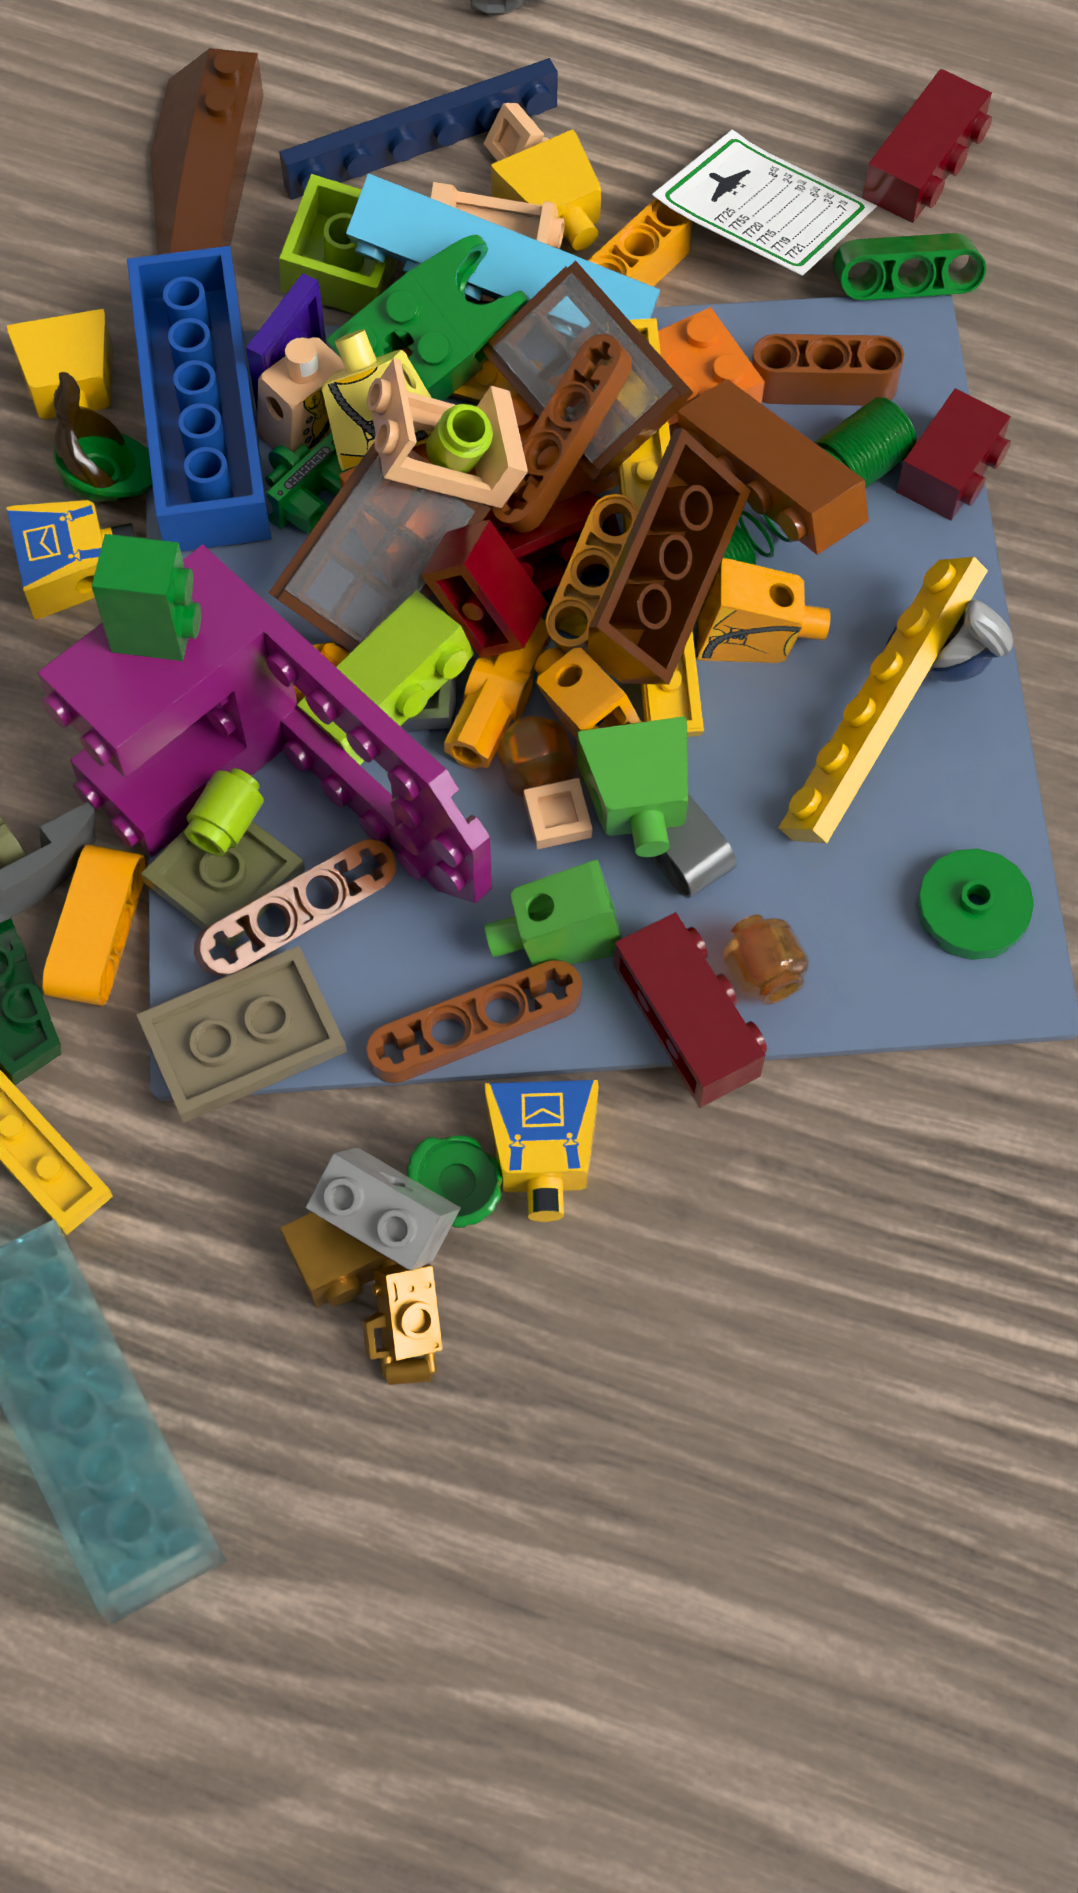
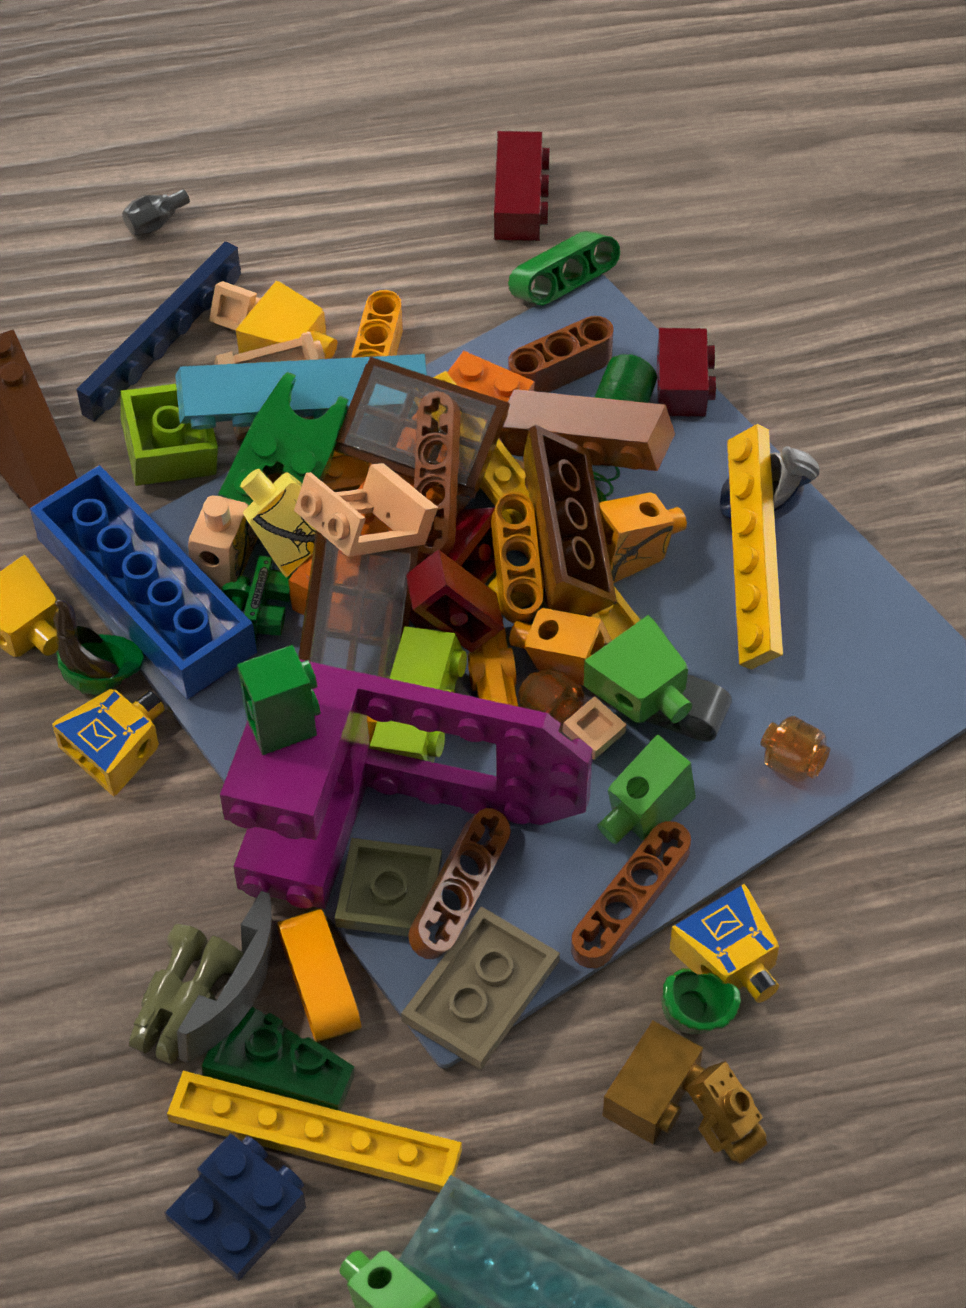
camera: 30 degrees left, 10 degrees down
(224, 811) = (370, 843): lime brick -> none
(295, 317) = (185, 501): dark purple tile -> none
(383, 1208) = (675, 1036): light grey brick -> none
(459, 438) = (380, 505): lime brick -> none
(690, 1008) = (768, 807): dark red brick -> none
(764, 203) = (438, 270): white sticker -> none
(970, 928) = (894, 663): green plate -> none

